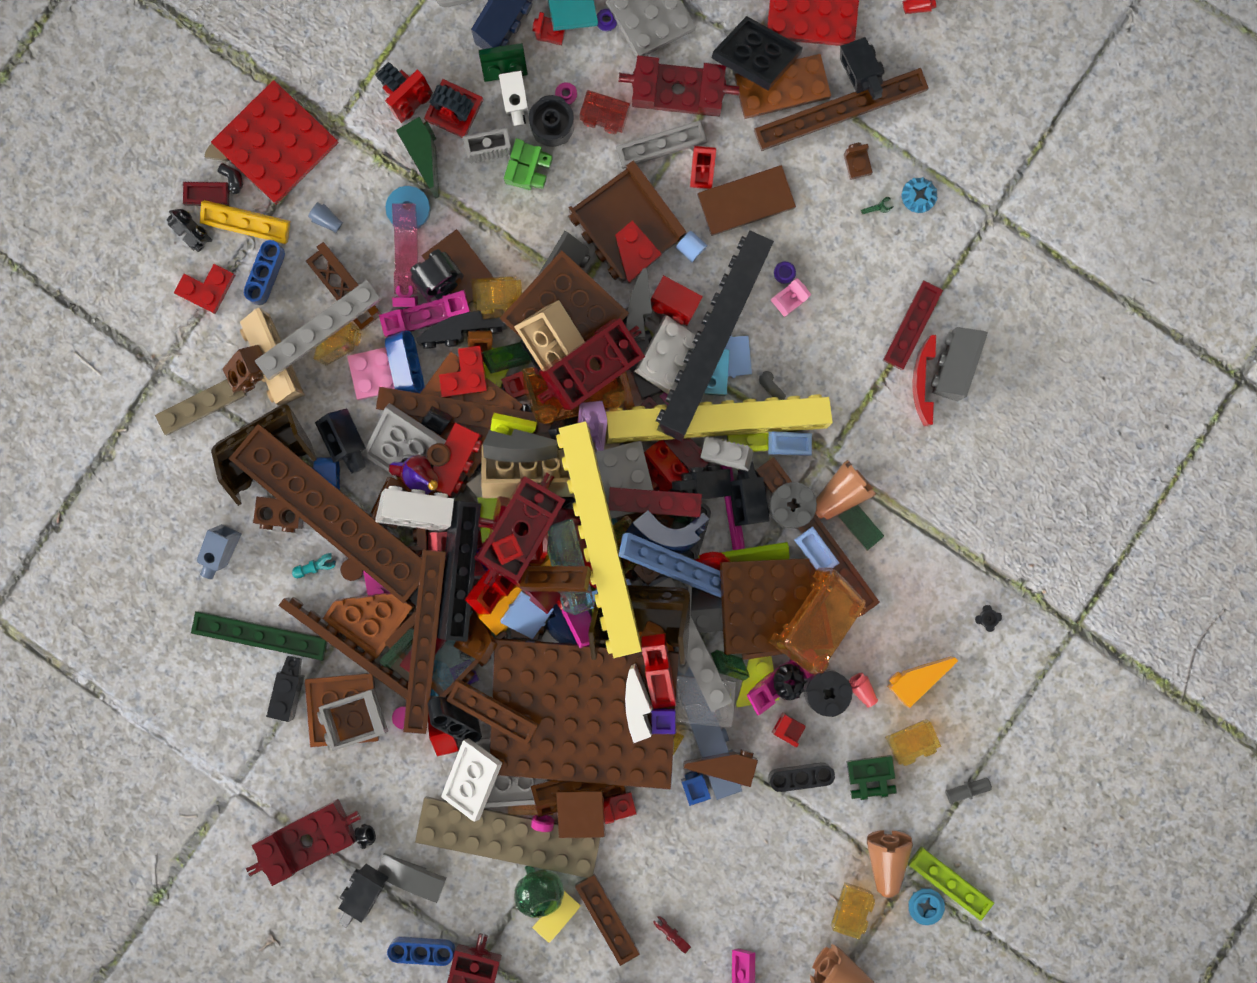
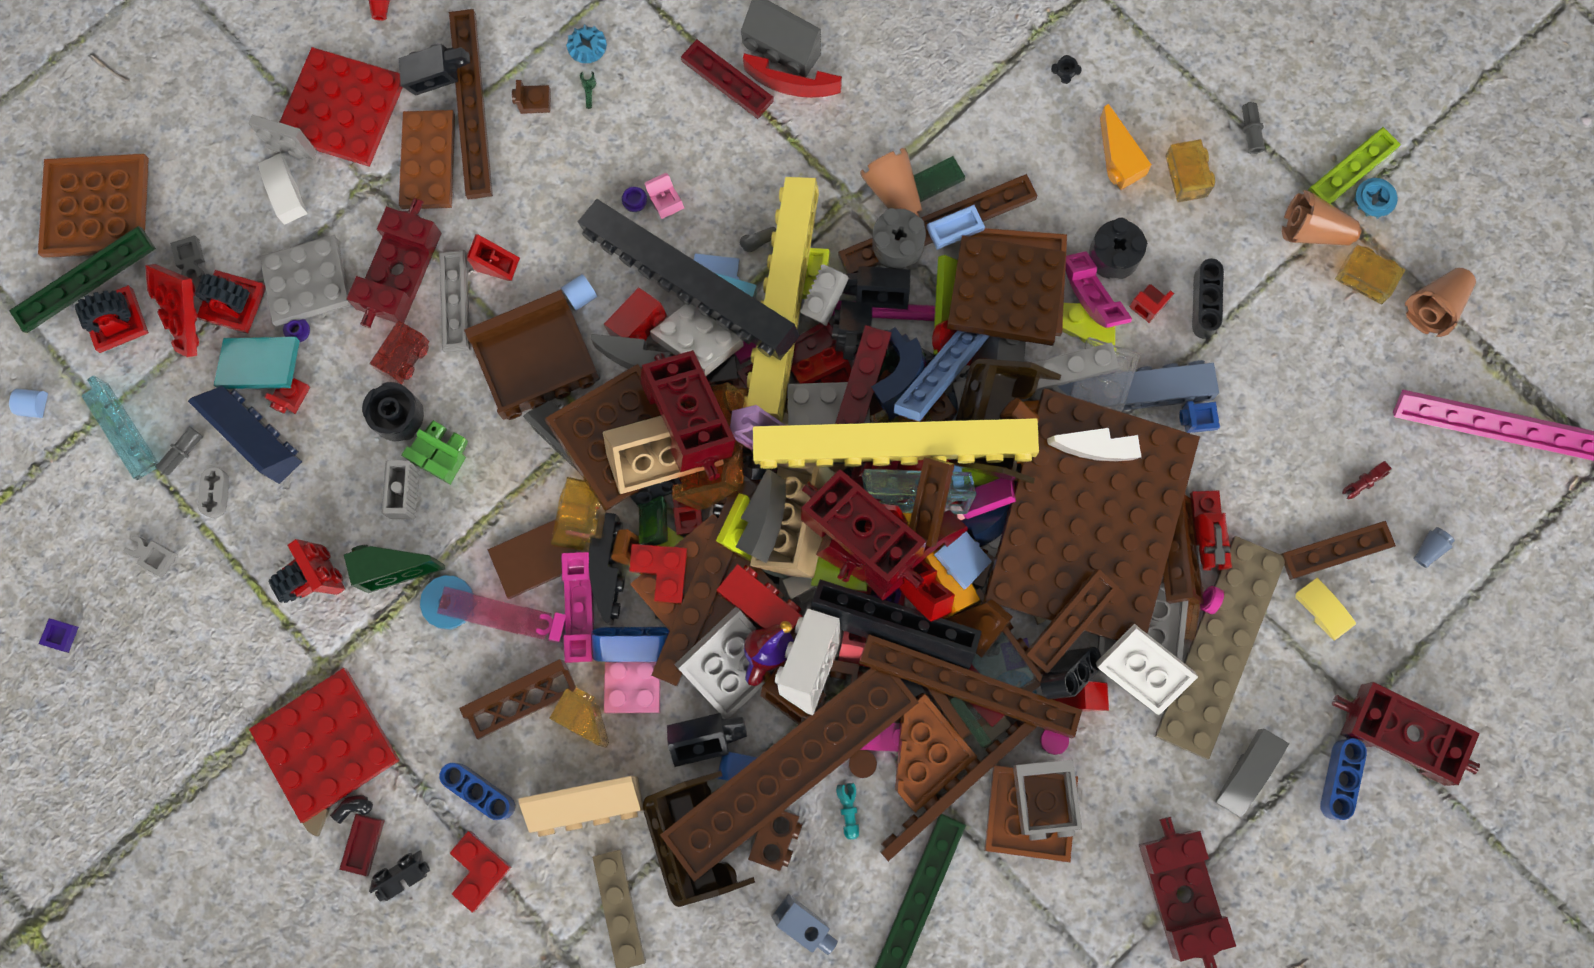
camera: 70 degrees left, 10 degrees down
(242, 369) = (589, 836): reddish brown brick -> none
(244, 222) = (409, 803): yellow tile -> none
(286, 690) = (994, 876): black hinge -> none
(317, 330) = (565, 731): light grey plate -> none
(324, 217) = (431, 703): sand blue cone -> none
(362, 894) = (1264, 836): black hinge -> none
(365, 835) = (1191, 818): black plate -> none
(436, 275) = (536, 579): black brick -> none
(436, 420) = (707, 614): black tile -> none
(438, 454) = (750, 616): reddish brown tile -> none
(453, 108) = (346, 521): plate -> none
(502, 60) = (309, 452): dark green plate -> none
(507, 549) = (884, 544): red tile -> none
(513, 88) = (341, 447): white torso -> none
(538, 892) = (1295, 620): clear green piece -> none
(567, 86) = (360, 386): dark pink plate -> none
(580, 813) = (1211, 544): reddish brown tile -> none
(635, 250) = (567, 351): red wing -> none
(658, 671) = (1062, 410): red slope -> none
(663, 721) = (1121, 419): dark purple plate -> none
(727, 766) = (1182, 369): reddish brown slope -> none
(730, 665) = (1067, 343): clear green tile -> none
(746, 200) = (543, 223): reddish brown tile -> none
(757, 53) = (382, 172): black plate -> none
(785, 690) = (1087, 285): black gear -> none
(790, 443) = (827, 231): light blue tile -> none
(820, 621) = (1039, 230): clear orange windscreen -> none
(863, 689) = (1116, 210): coral cone -> none
(870, 770) = (1213, 223): dark green plate -> none

